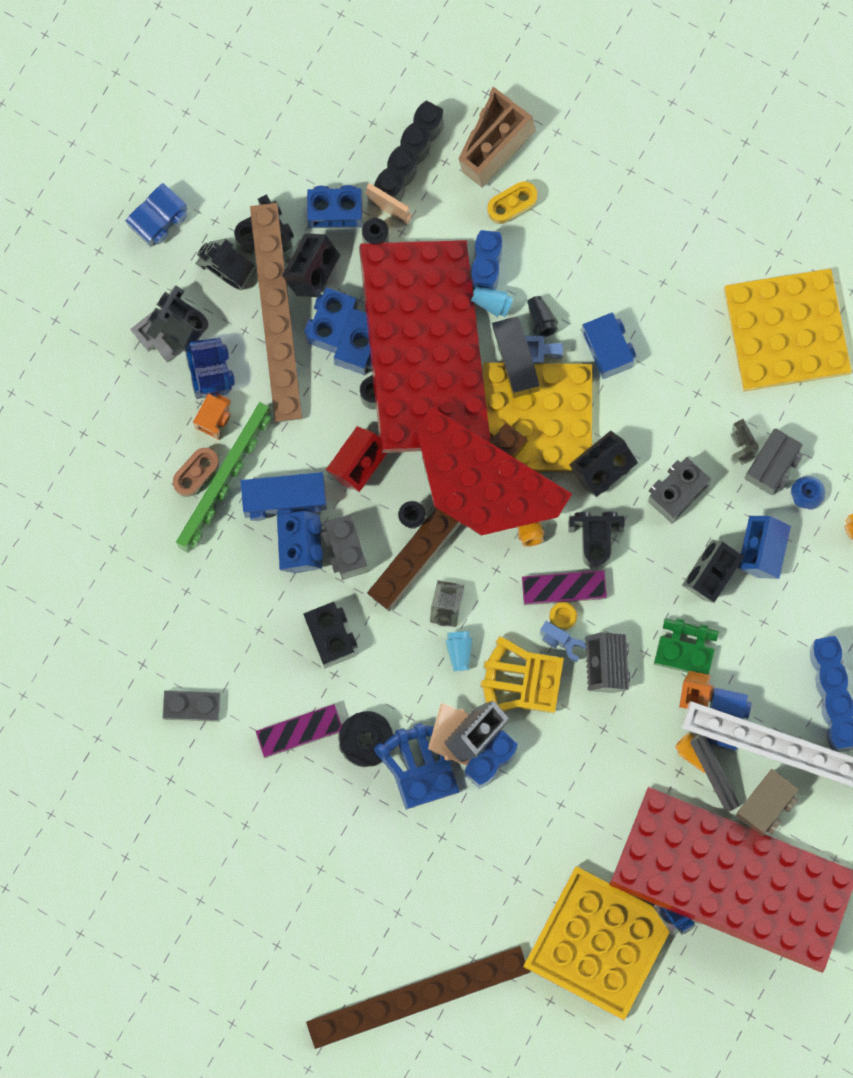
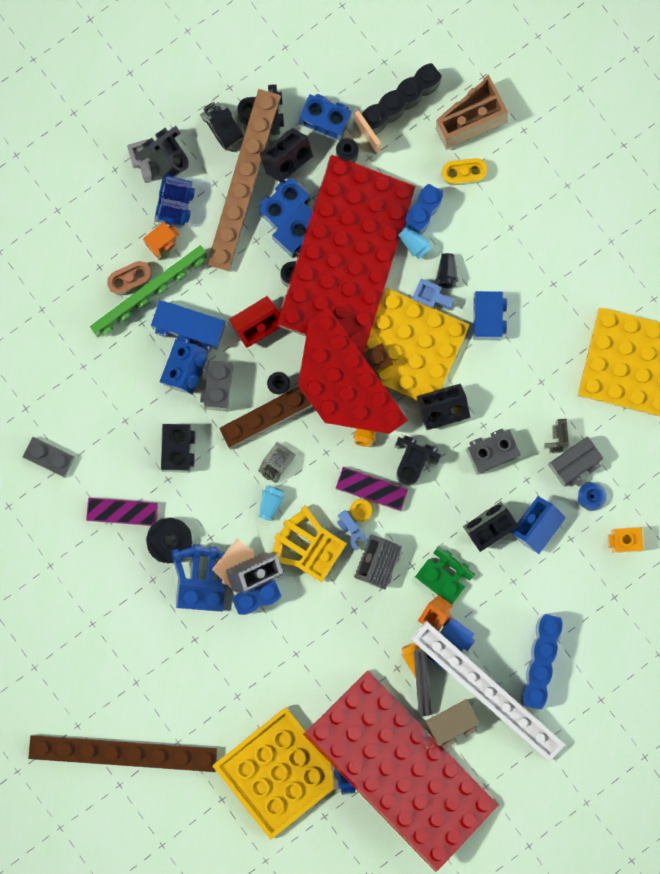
camera: 15 degrees right, 5 degrees up
(157, 215) = (186, 64): blue brick -> none
(516, 357) = (412, 294): black slope -> none

